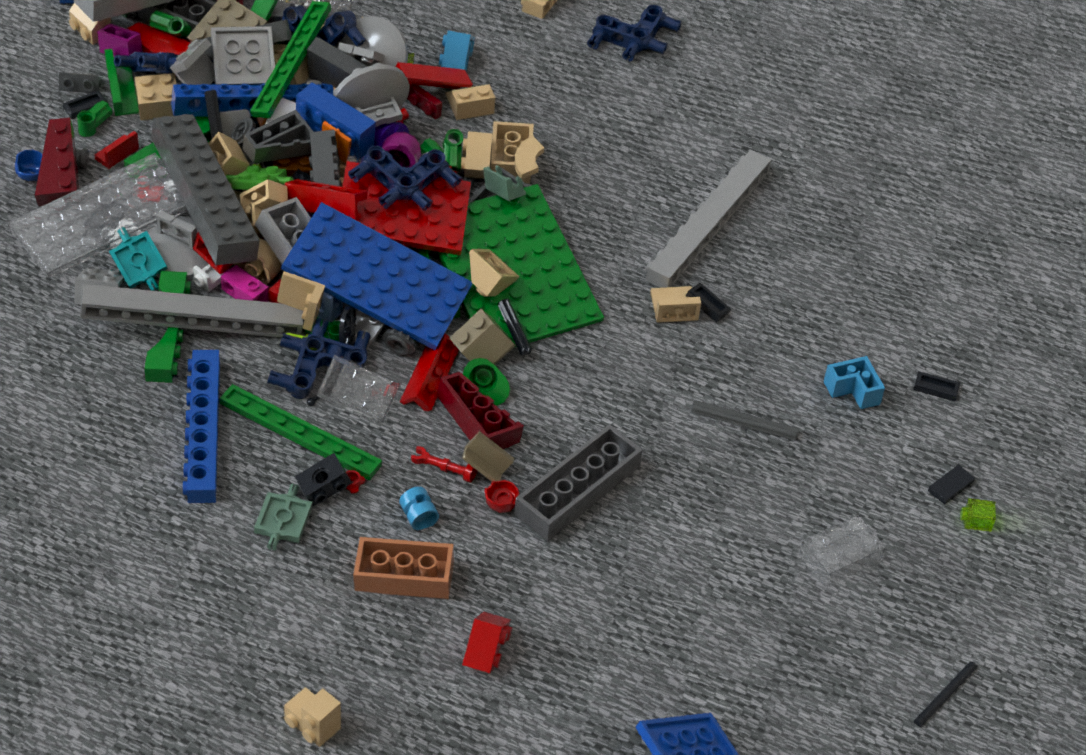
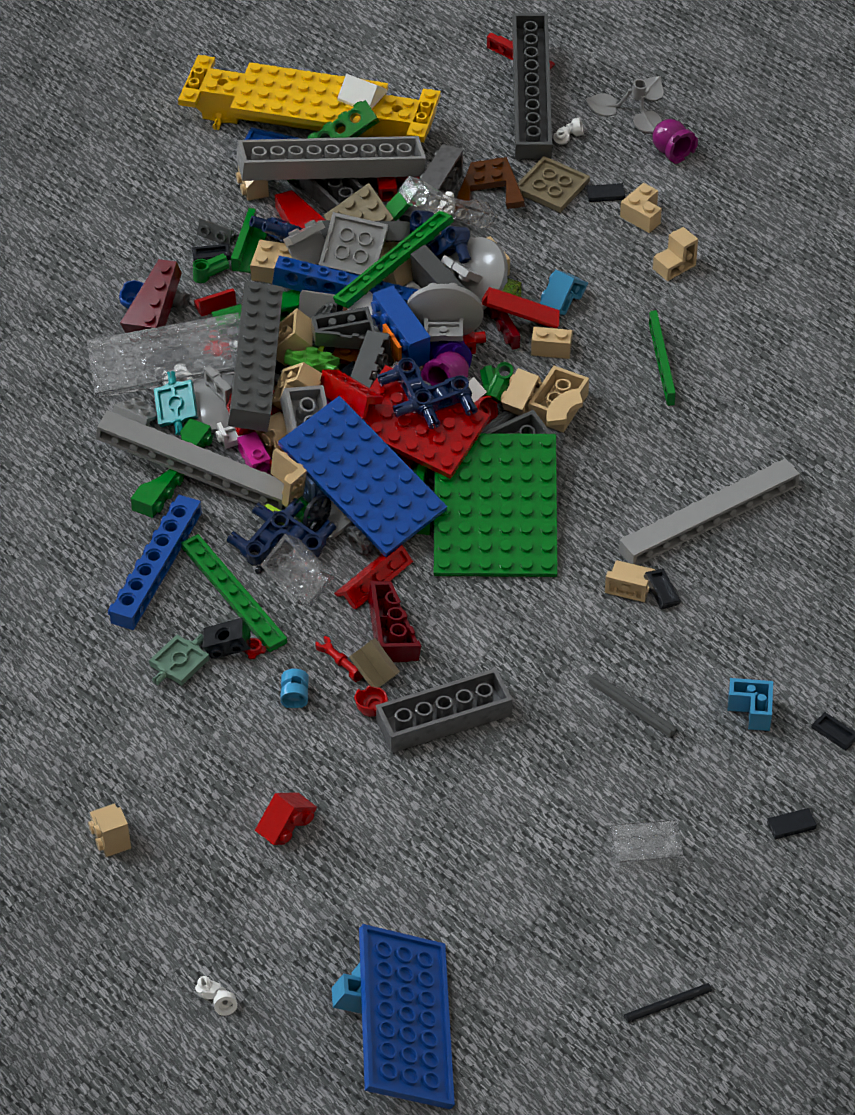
camera: 30 degrees right, 0 degrees up
(119, 40) = (266, 203): magenta brick -> none
(170, 24) = (315, 199): green piece -> none
(213, 112) = (302, 290): black axle -> none
(404, 567) = (253, 734): nougat brick -> none
(482, 338) = (429, 561): dark tan slope -> none
(483, 372) = (411, 590): green piece -> none
(490, 272) = (466, 501): tan slope -> none
(502, 185) = (519, 425): sand green hinge -> none
(514, 327) = (466, 558): black axle -> none
(582, 89) = (662, 359): none -> green tile
(634, 37) = (745, 321): dark blue pin -> none
(978, 514) = (797, 858): clear neon green brick -> none

